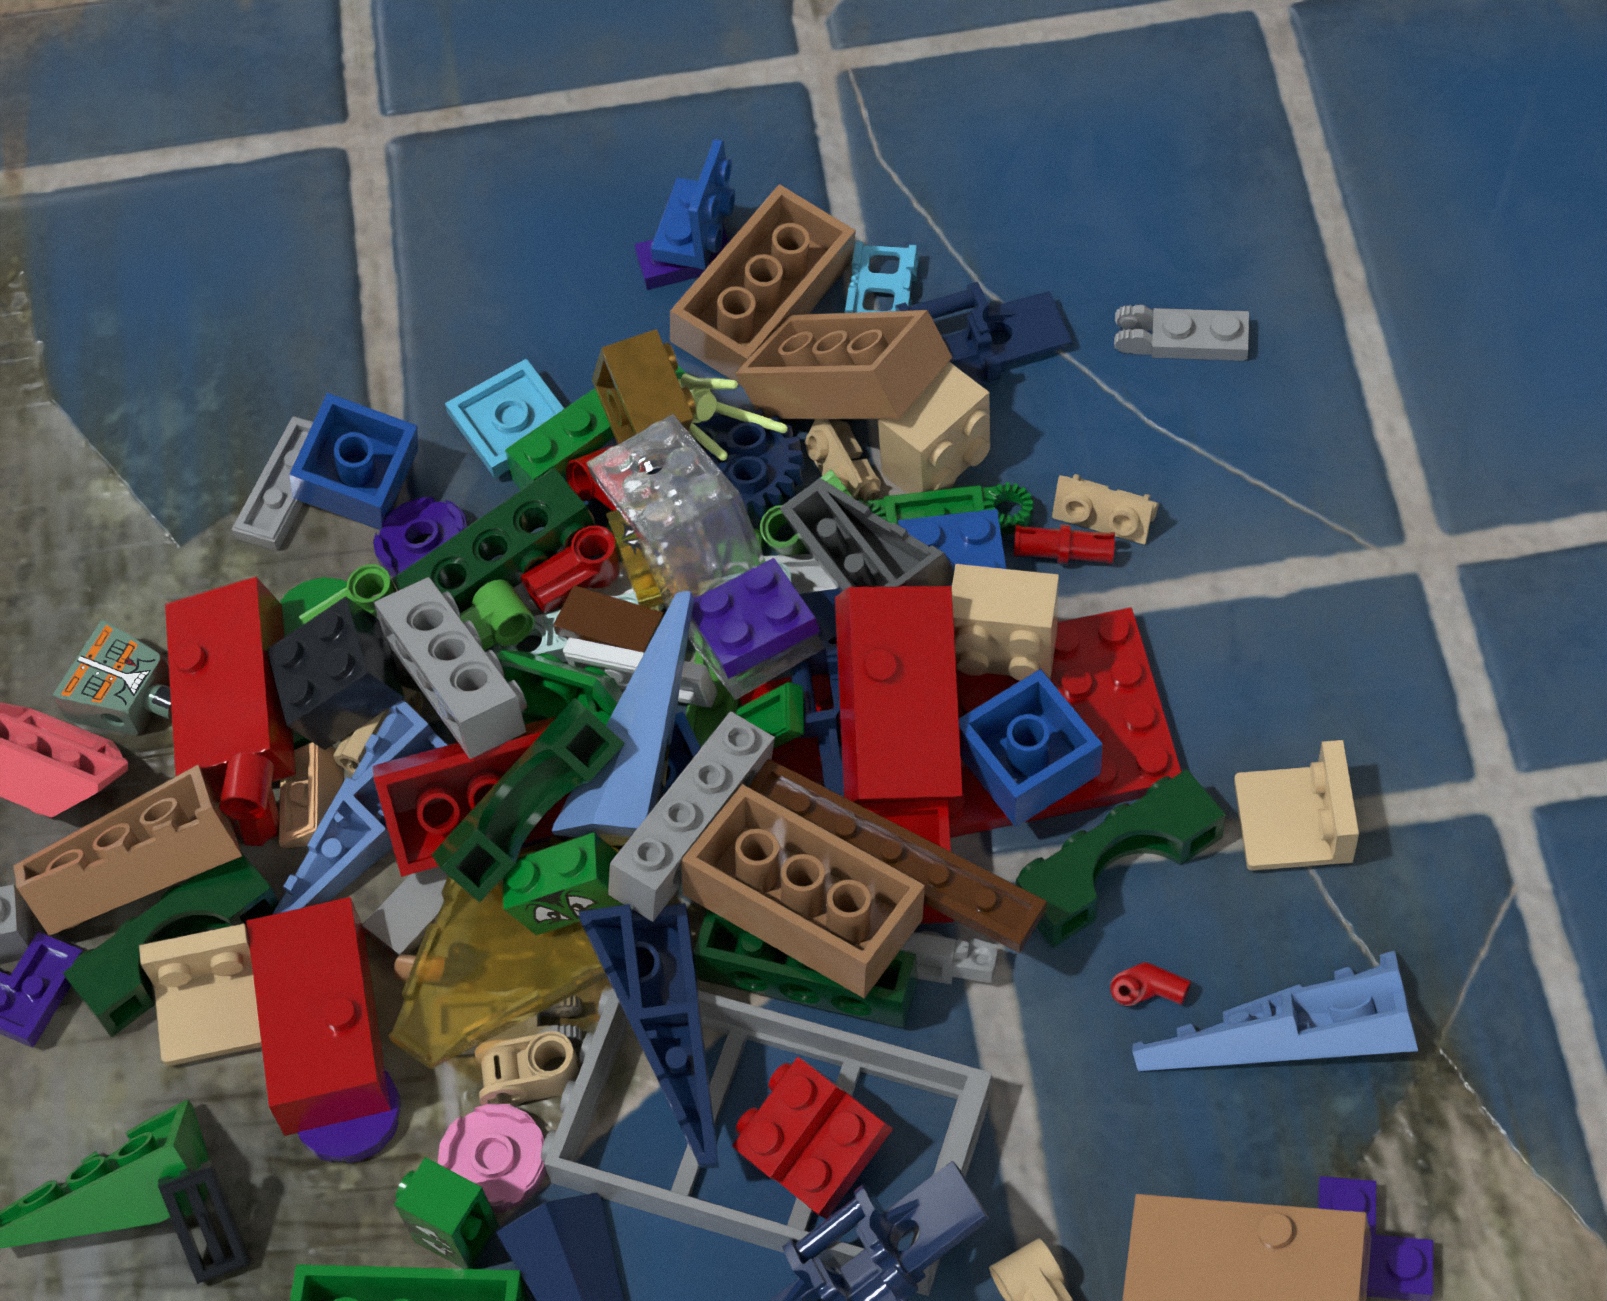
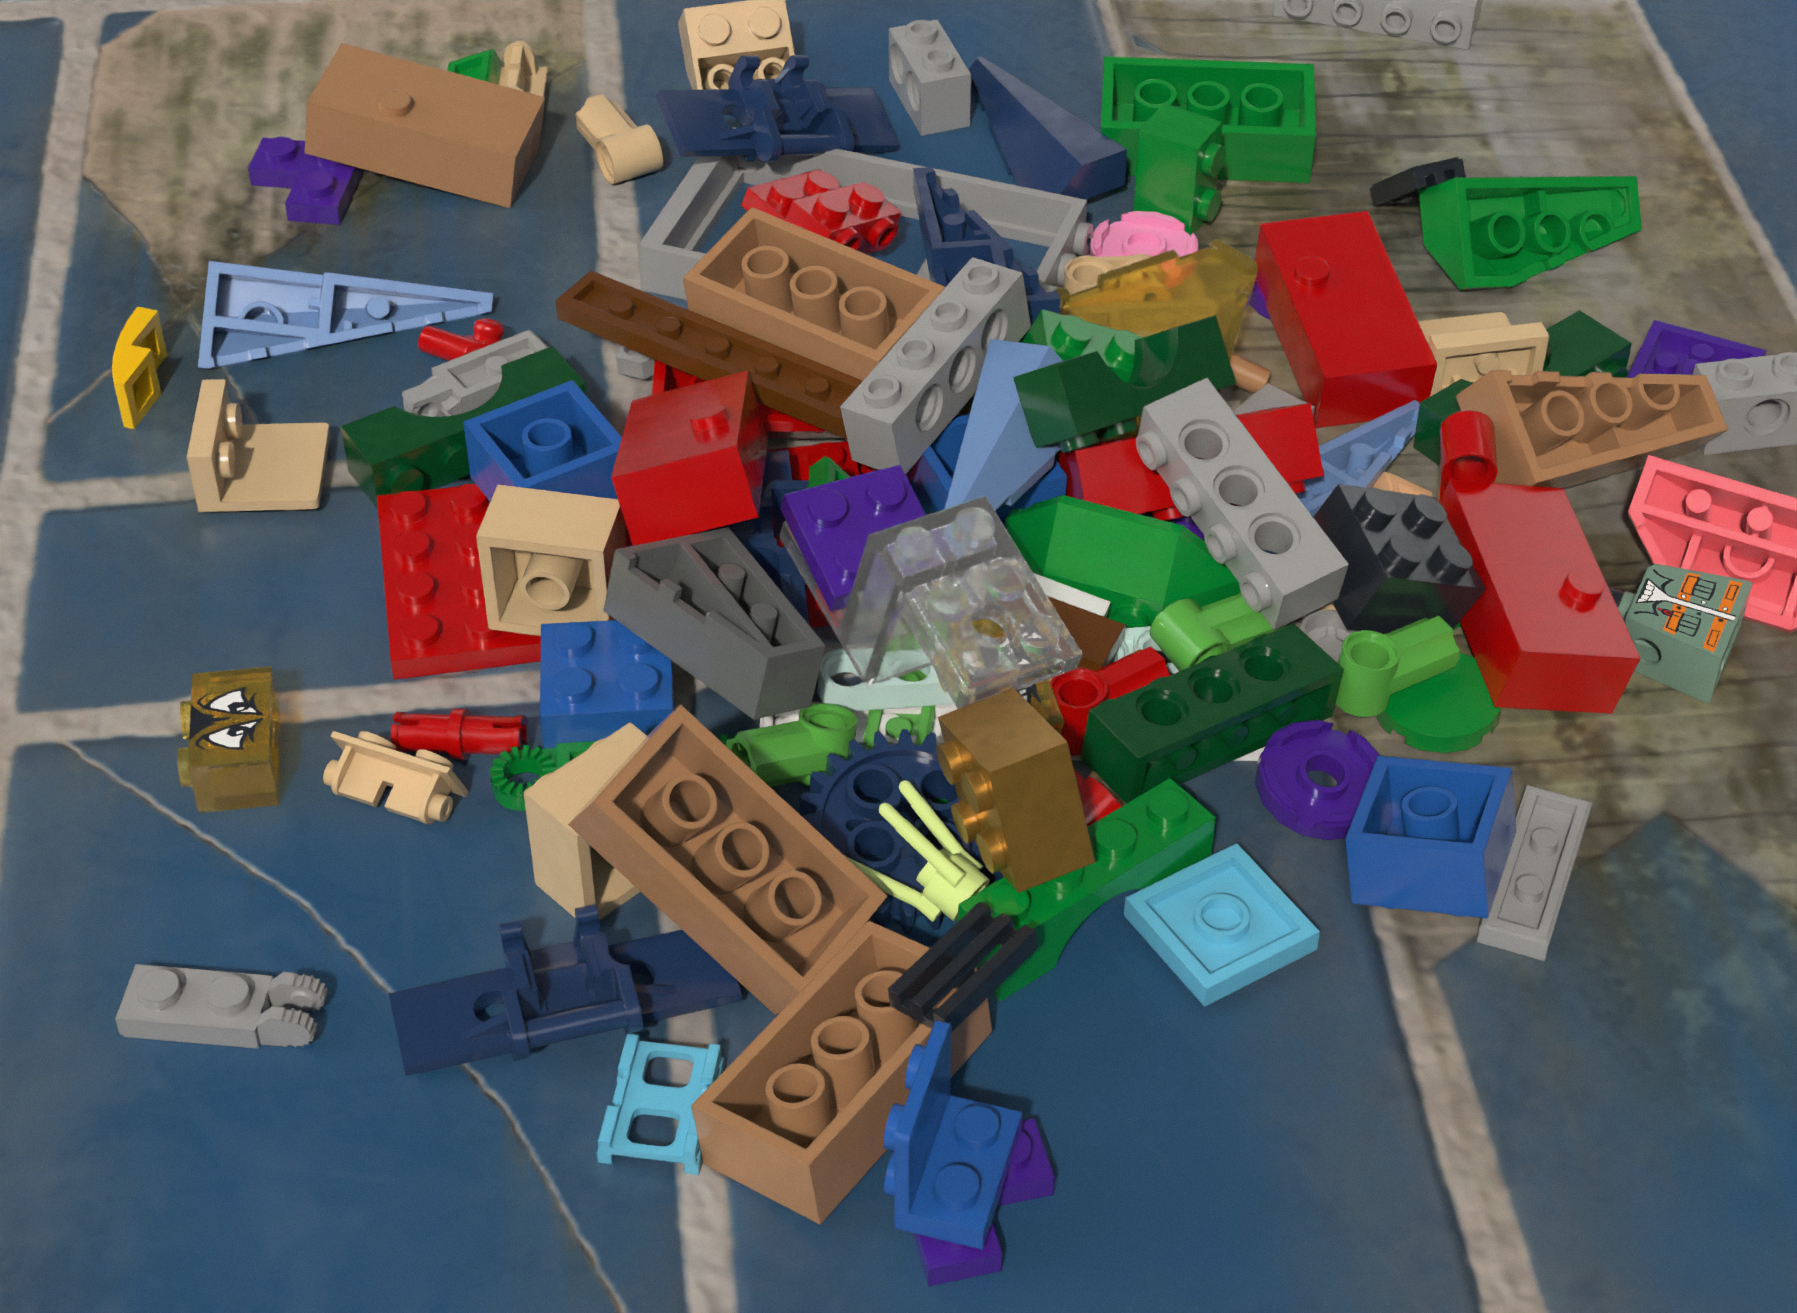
camera: 175 degrees right, 15 degrees down
(669, 289) = (953, 964): none -> black tile
(1117, 929) = (469, 379): none -> light grey hinge
(1233, 523) = (231, 740): none -> clear yellow brick
(1446, 915) = (135, 363): none -> yellow slope

